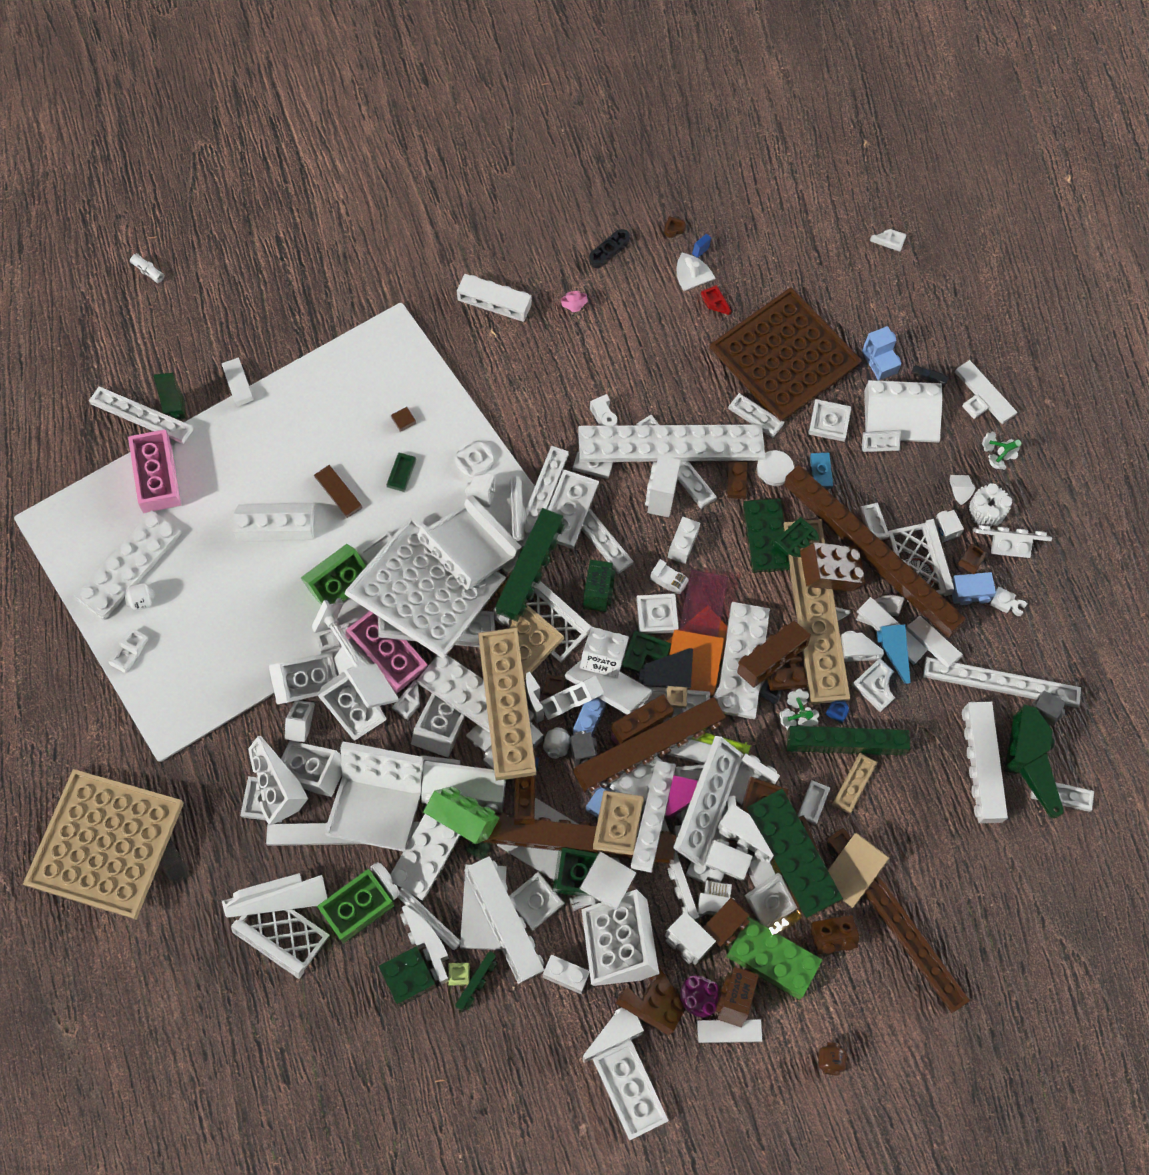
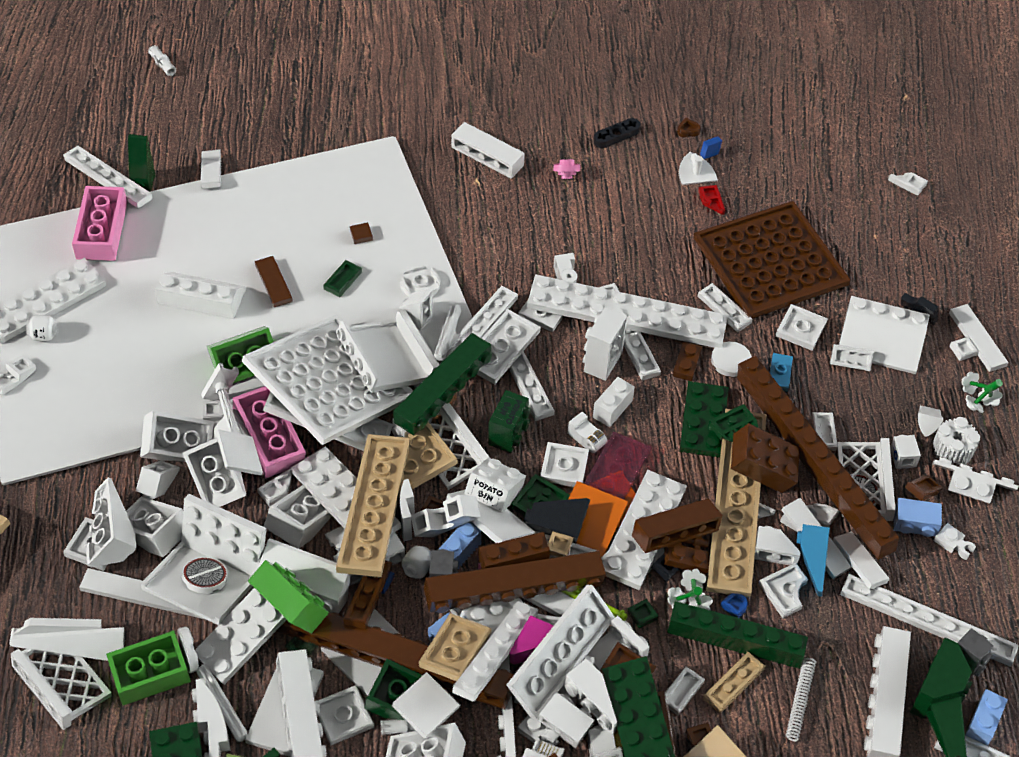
camera: 15 degrees right, 15 degrees down
(375, 806) = (204, 575): none -> tile
(762, 739) = (642, 613): none -> dark green tile
(880, 353) = (871, 275): light blue brick -> none
(914, 785) = (796, 699): none -> white piece
(1068, 762) = (986, 717): none -> light blue brick

